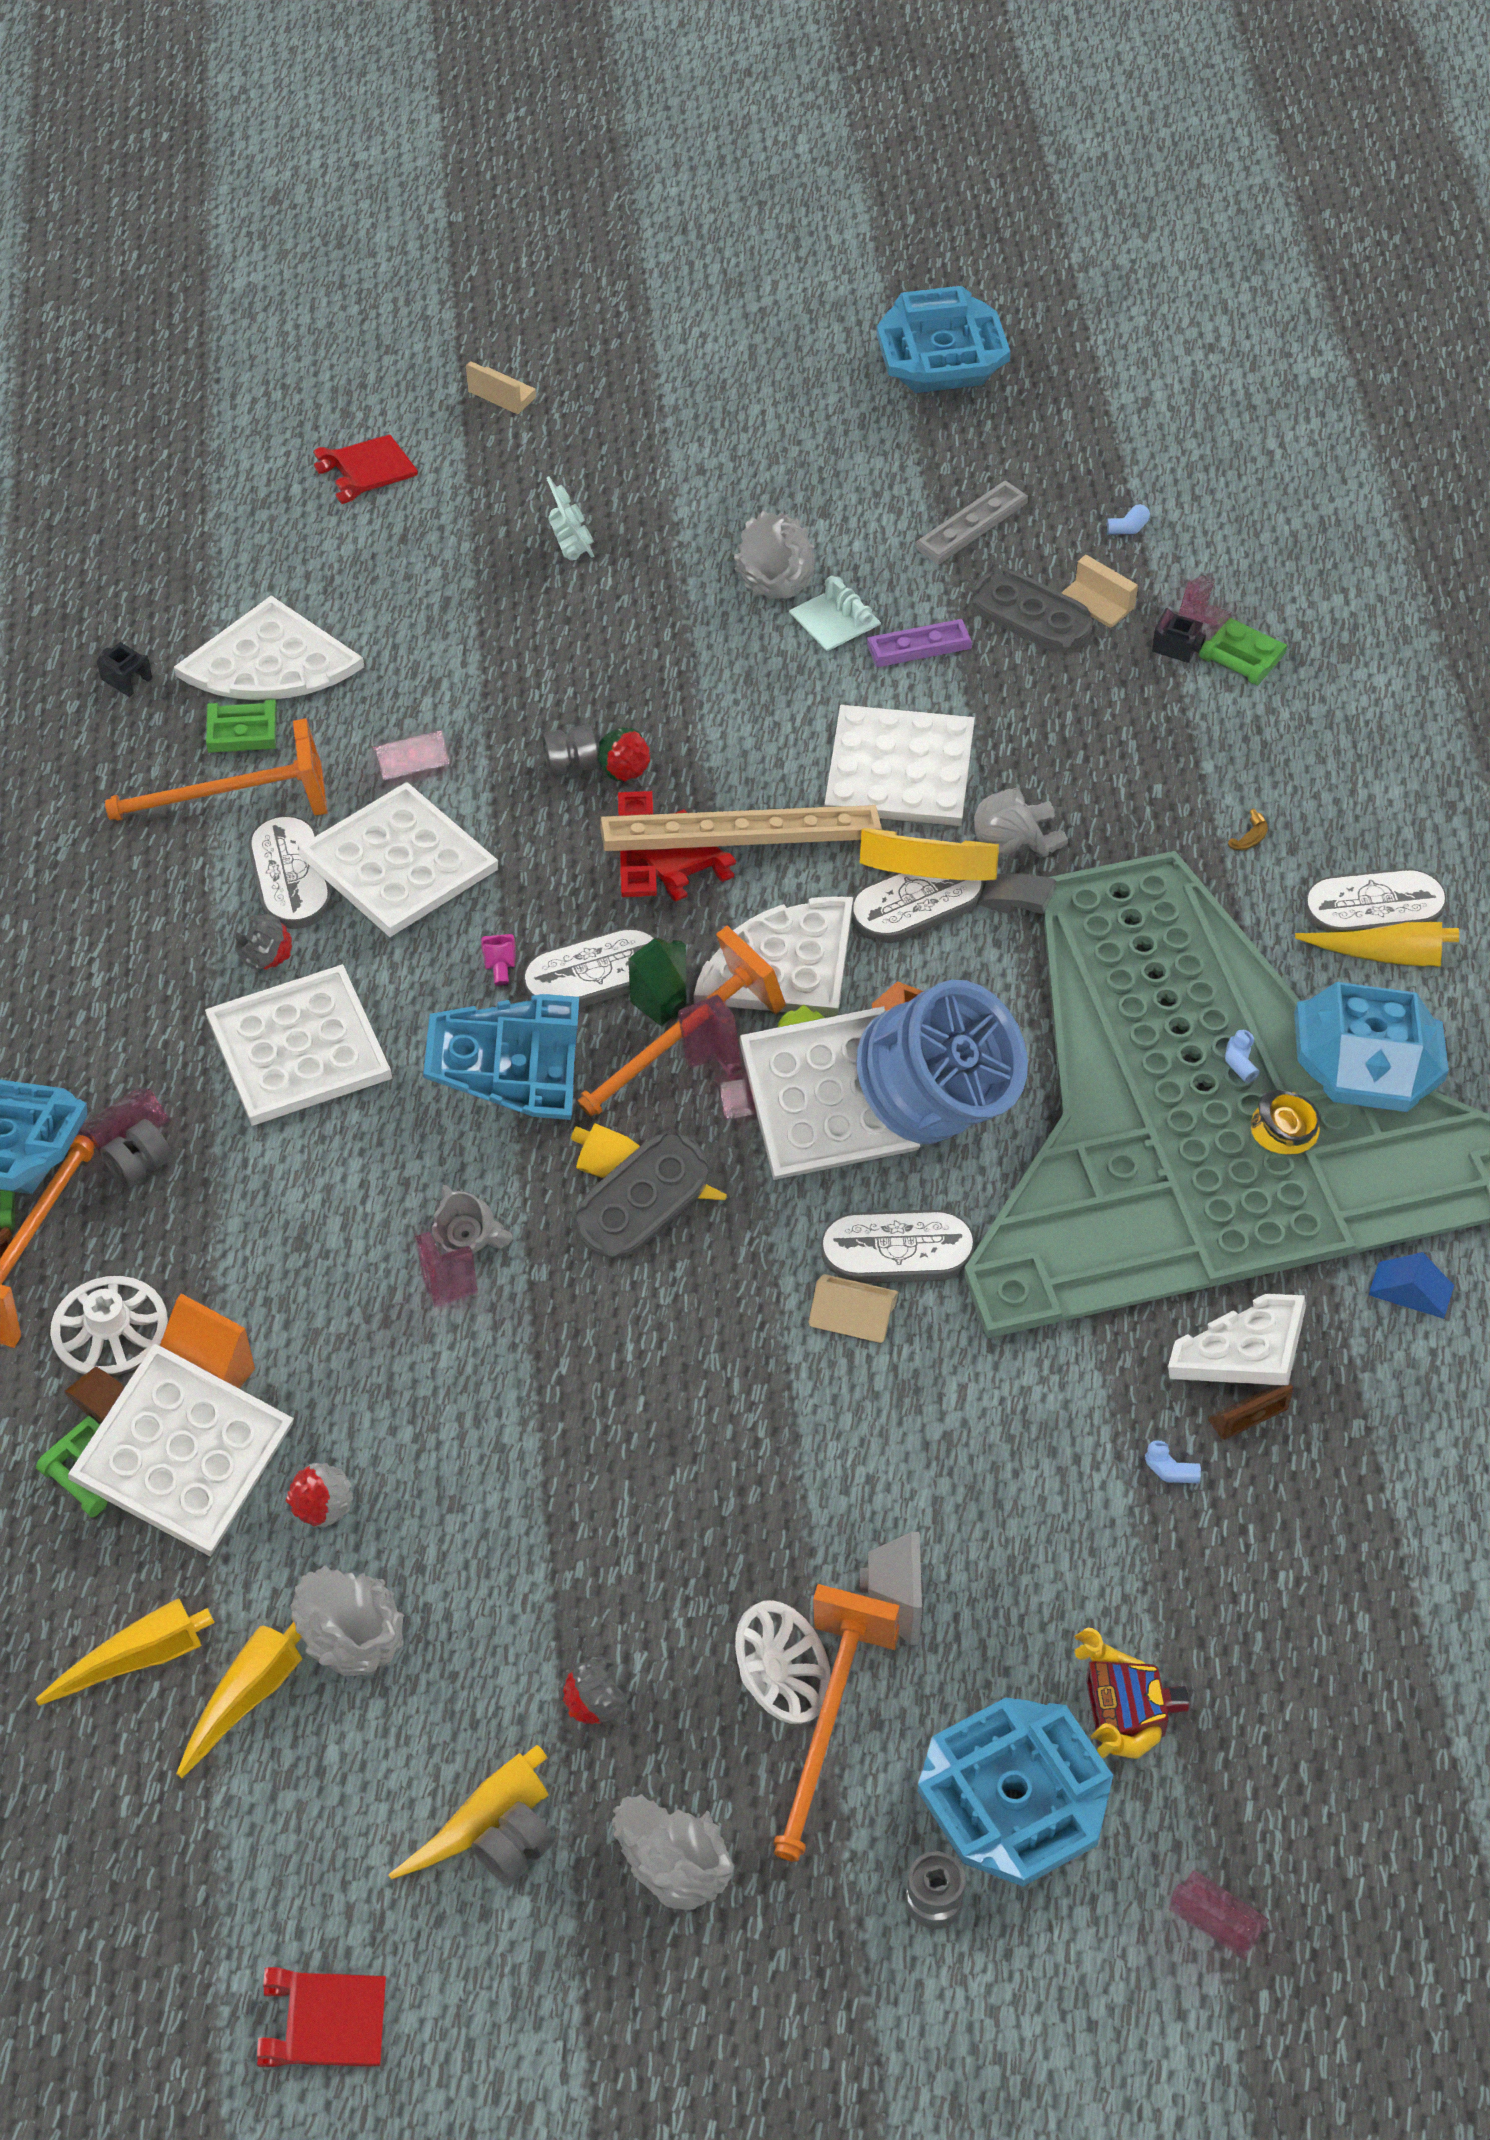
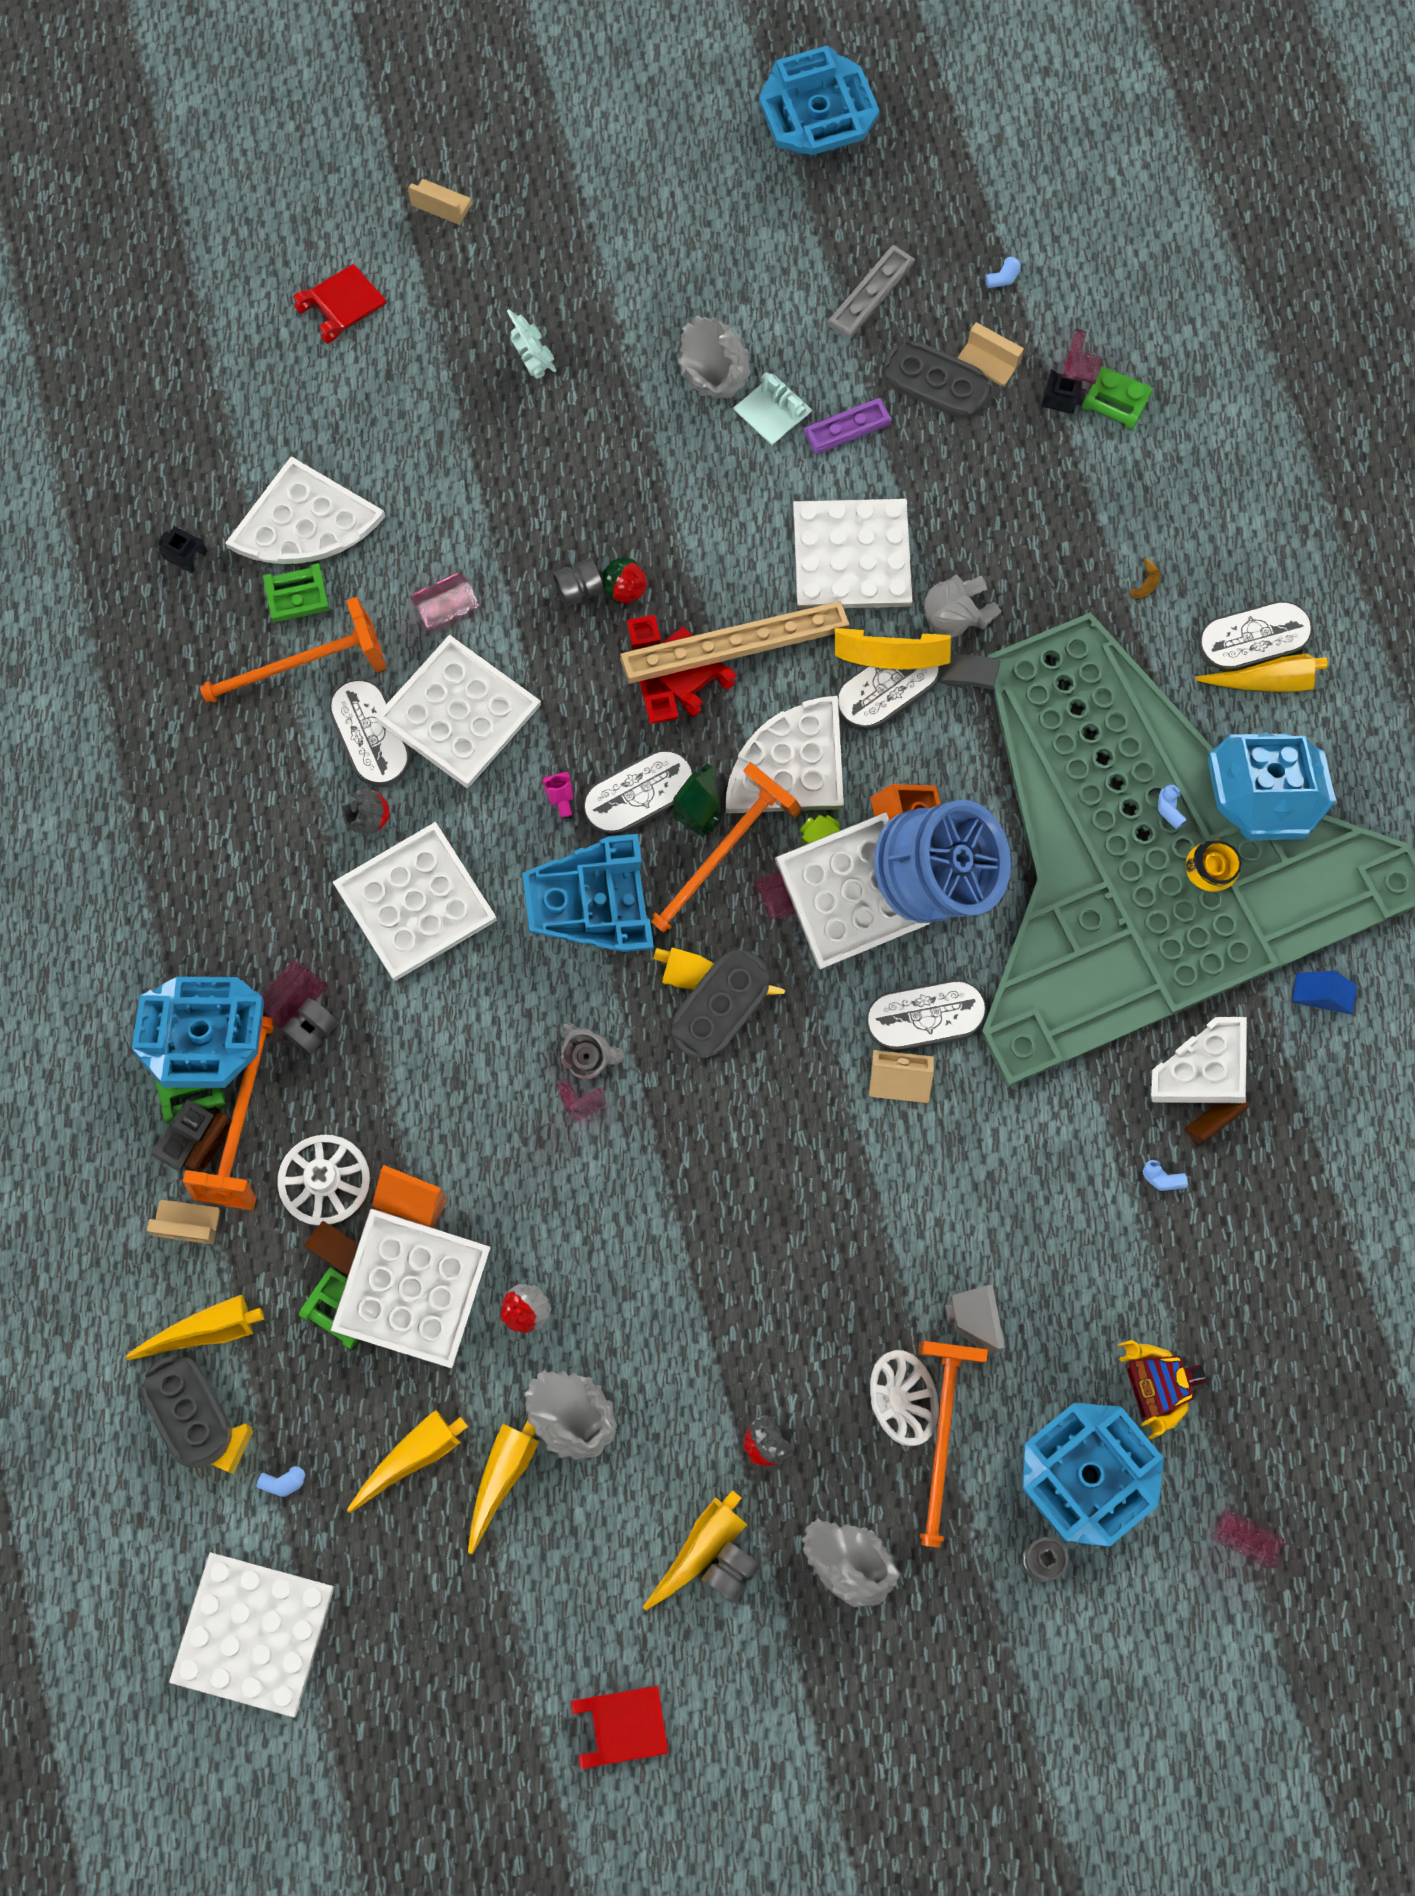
camera: 10 degrees left, 20 degrees up
(710, 1034) = (746, 847): clear pink panel -> none

